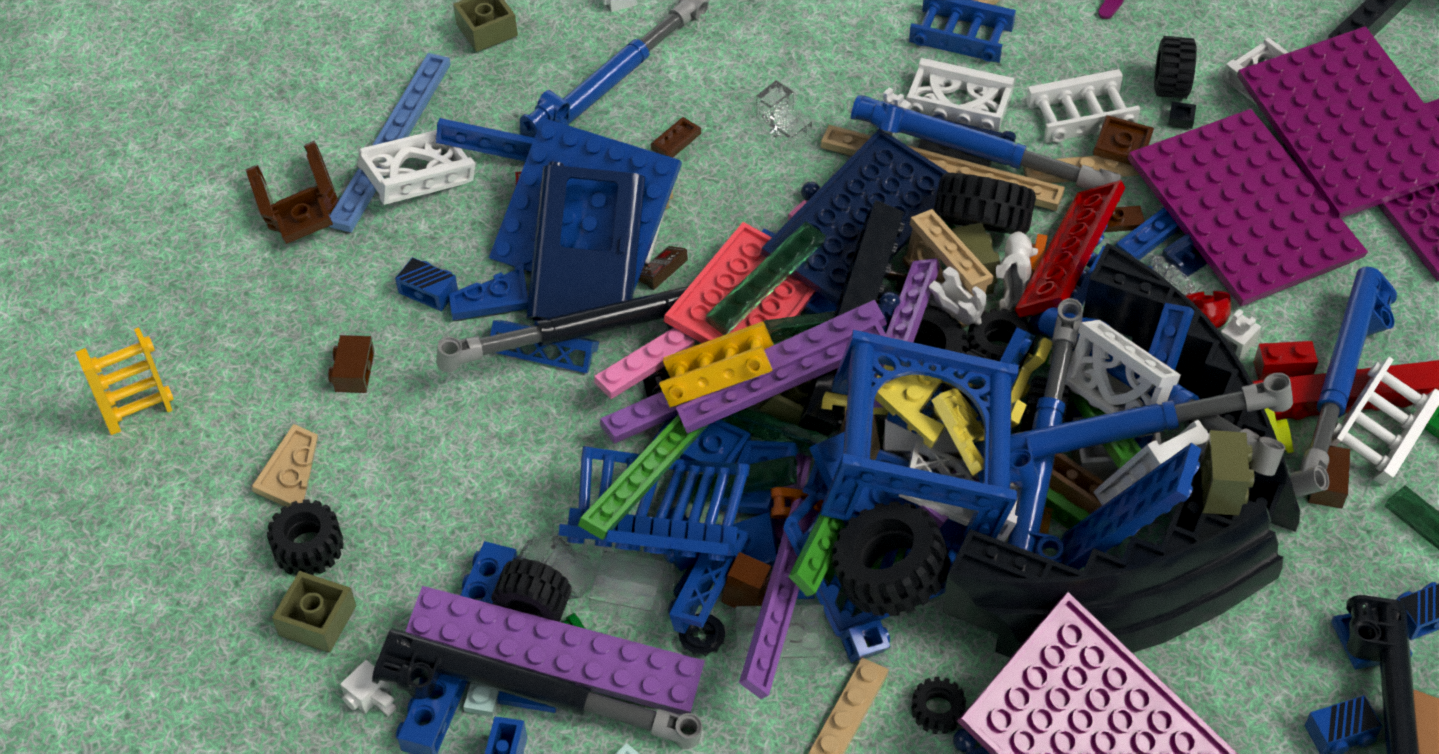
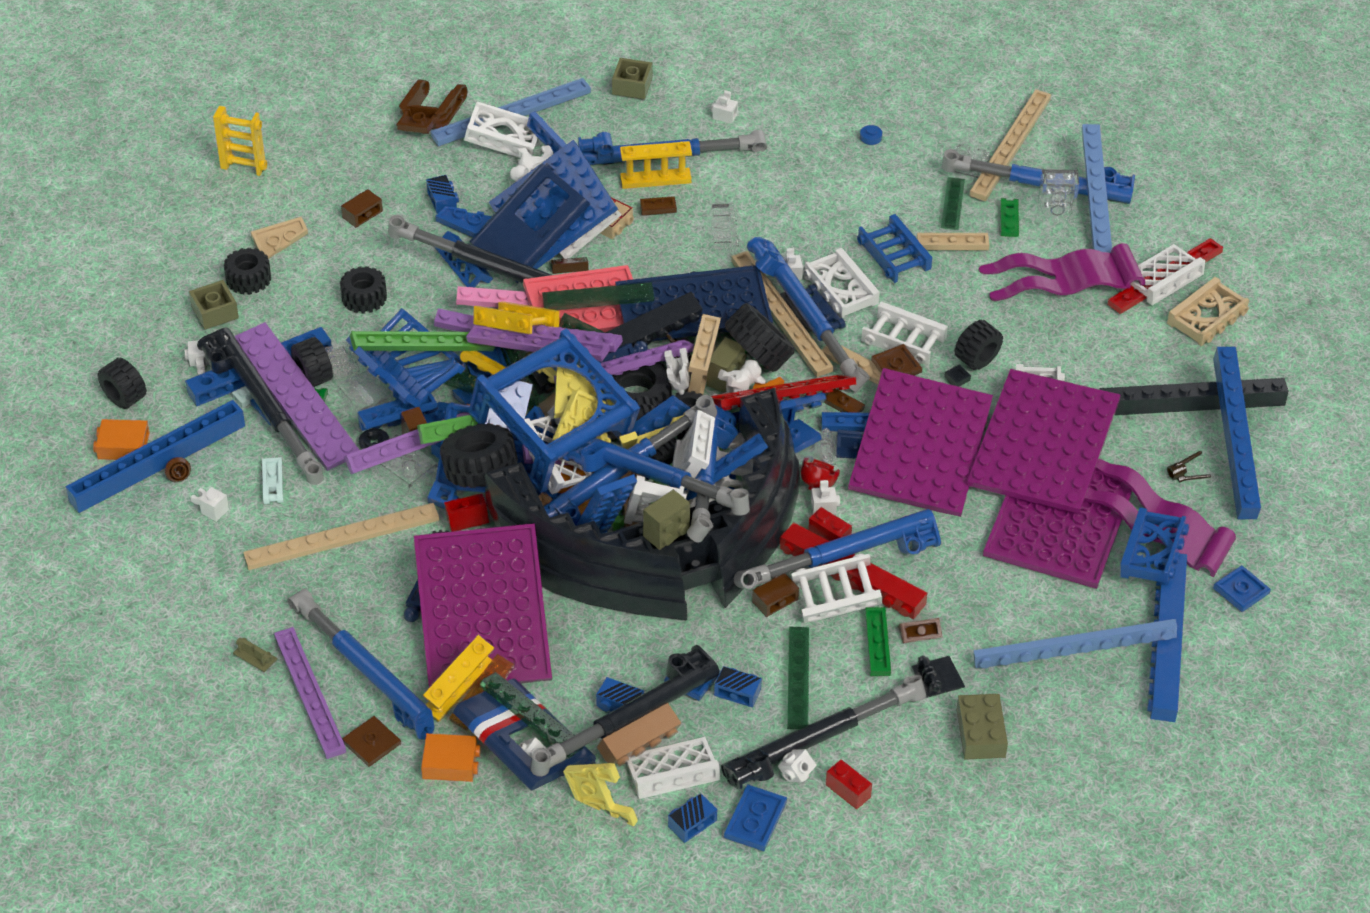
camera: 40 degrees right, 5 degrees down
(477, 476) = (363, 289): none -> black tyre
(491, 184) = (528, 162): none -> white animal
(643, 103) = (655, 177): none -> yellow fence
(731, 444) = (483, 362): none -> yellow plate
(921, 639) = (466, 512): none -> red brick
(1281, 430) = (775, 546): neon yellow slope -> none

